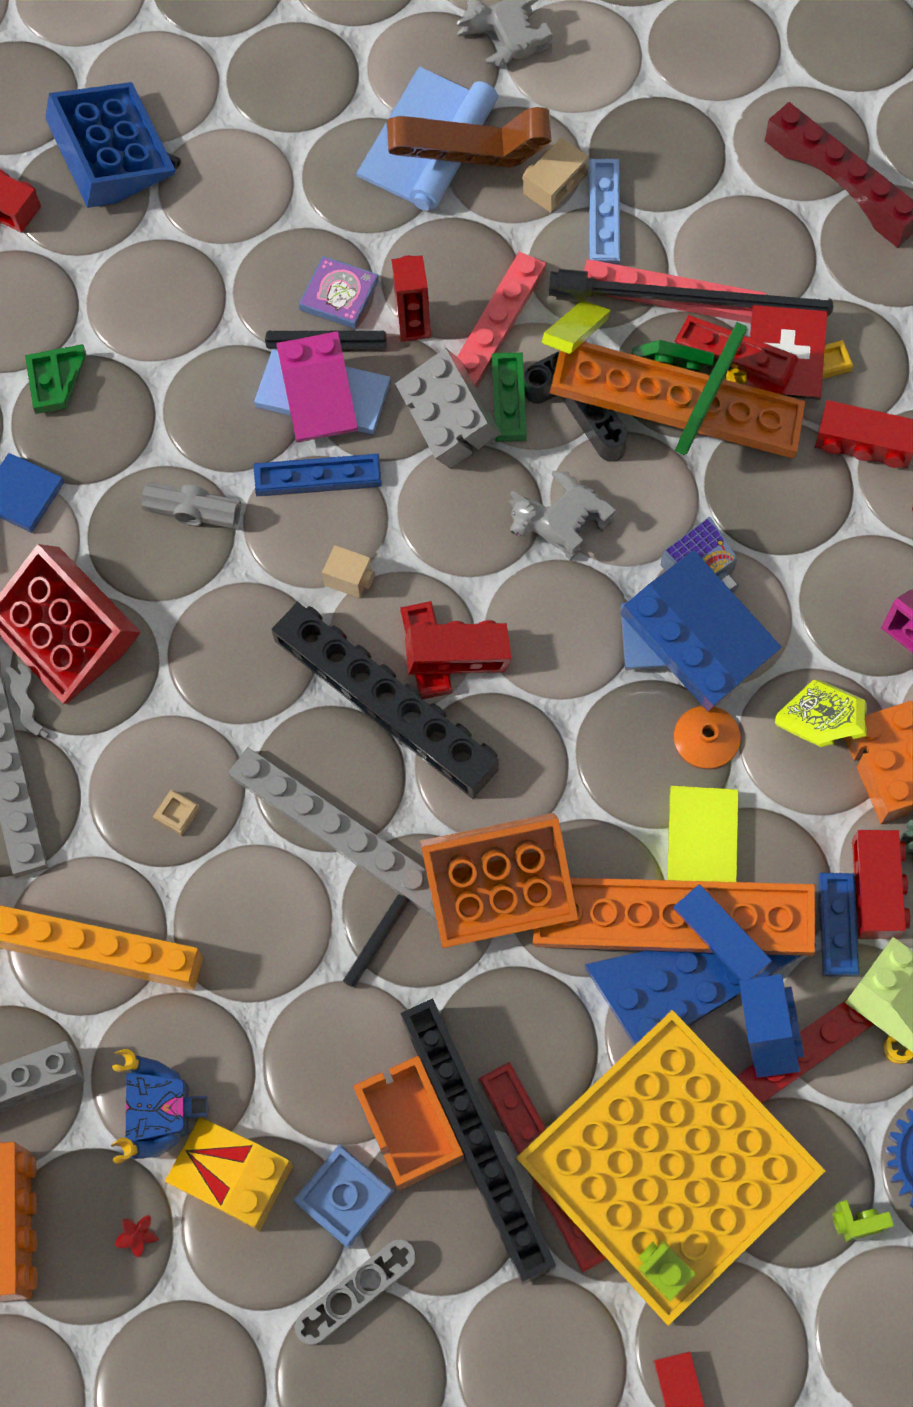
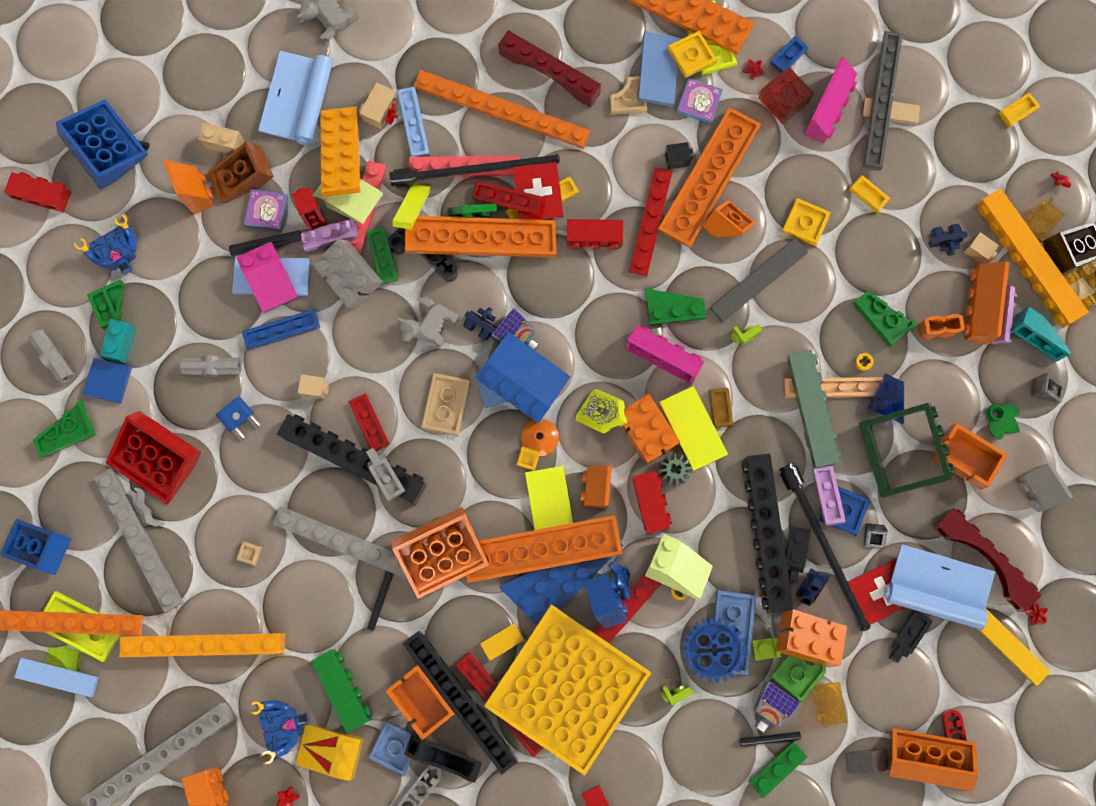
camera: 15 degrees left, 10 degrees up
(54, 434) = (117, 341): none -> teal brick
(85, 297) = (114, 248): none -> blue torso
(211, 588) = (236, 414): none -> blue piece
(230, 228) = (189, 186): none -> orange slope
(275, 1072) = (341, 690): none -> green brick
(295, 174) = (220, 138): none -> tan brick
(313, 227) = (240, 172): none -> dark orange slope
(420, 347) = (328, 234): none -> lavender plate
(425, 1229) = (443, 758): none -> black arch
(435, 731) = (384, 475): none -> light grey hinge
(457, 648) = (386, 419): red brick -> none
(471, 142) = (320, 99): dark orange beam -> none
(476, 290) = (354, 206): none -> yellowish green slope
(479, 224) = (340, 152): none -> light orange plate
(560, 649) = (445, 404): none -> tan tile
(570, 1059) = (502, 641): none -> yellow tile
(572, 191) = (391, 115): none -> red plant
(635, 525) = (474, 319): none -> dark blue hips
(664, 1269) = (576, 747): lime bracket -> none
(681, 764) = (528, 458): none -> yellow tile
(711, 388) = (498, 231): green tile -> none
(722, 934) = (570, 556): blue tile -> none
(754, 221) = (502, 109): none -> orange plate
(791, 835) = (597, 487): none -> orange slope
(805, 996) = (622, 578): none -> blue plate
(838, 925) = (633, 530): blue tile -> none

